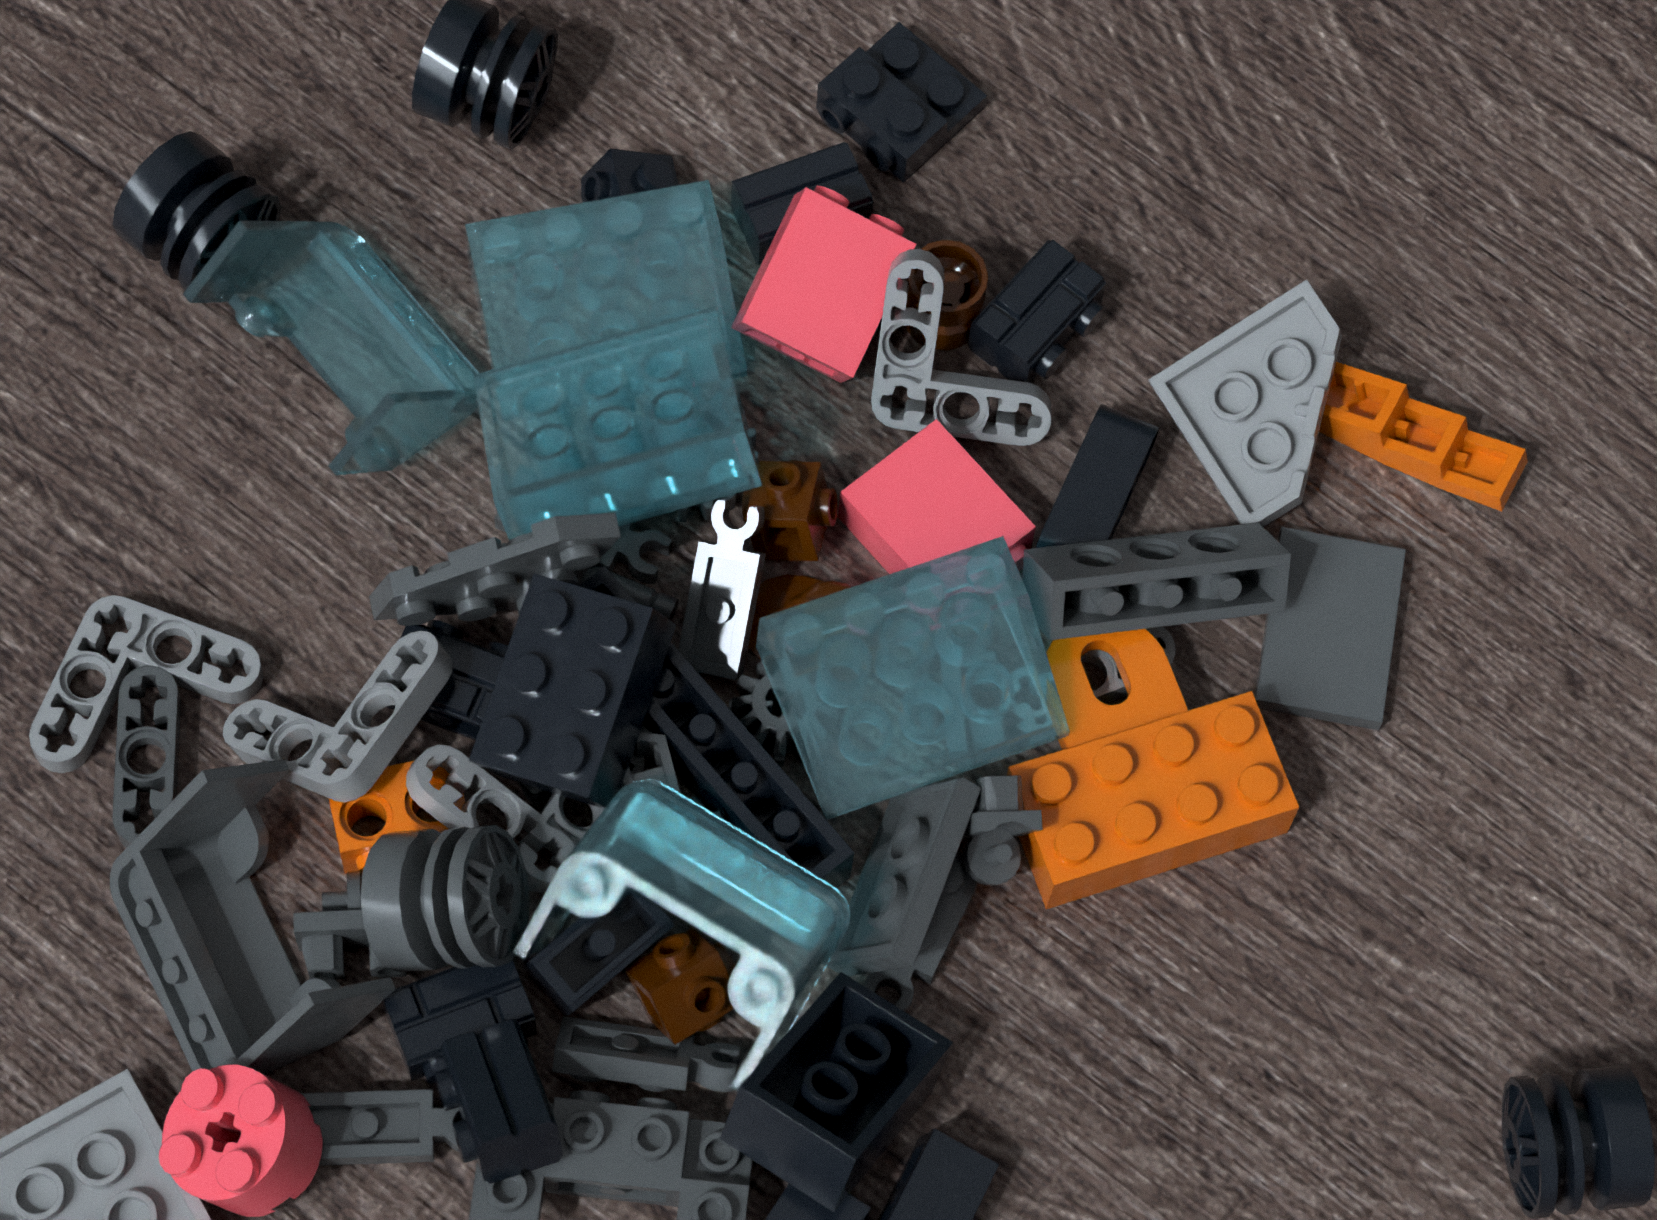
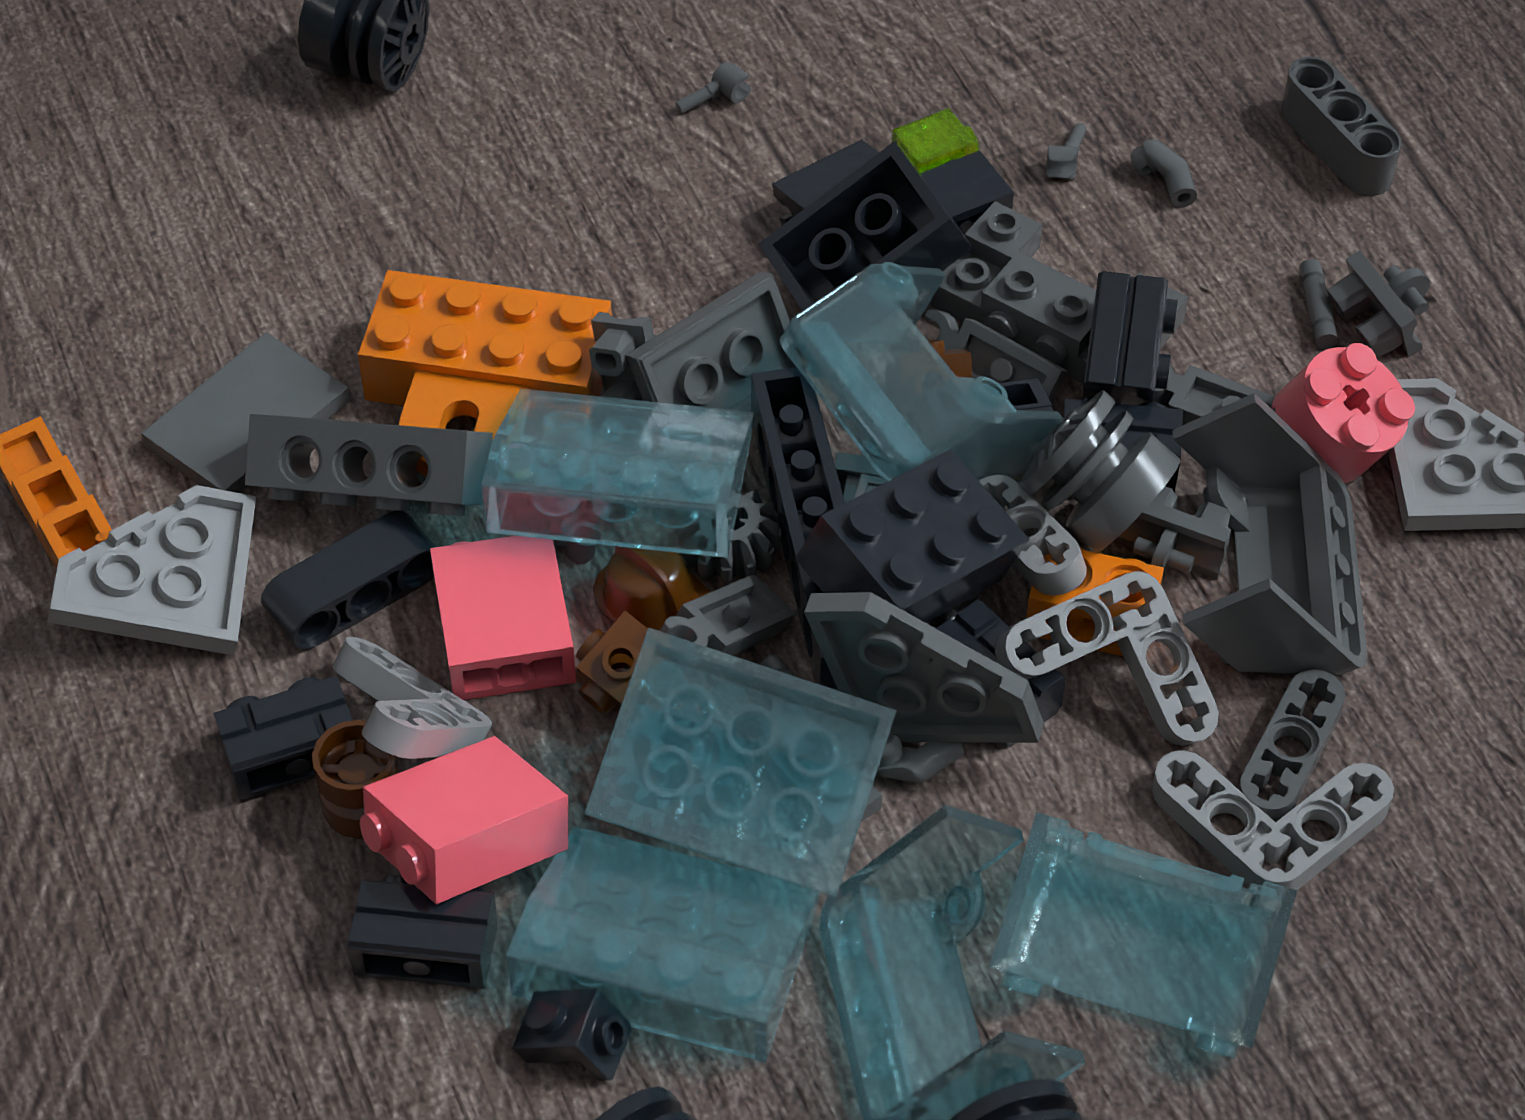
camera: 145 degrees left, 15 degrees down
(196, 502) = (1142, 935): none -> clear light blue windscreen
(898, 101) = (259, 998): black plate -> none

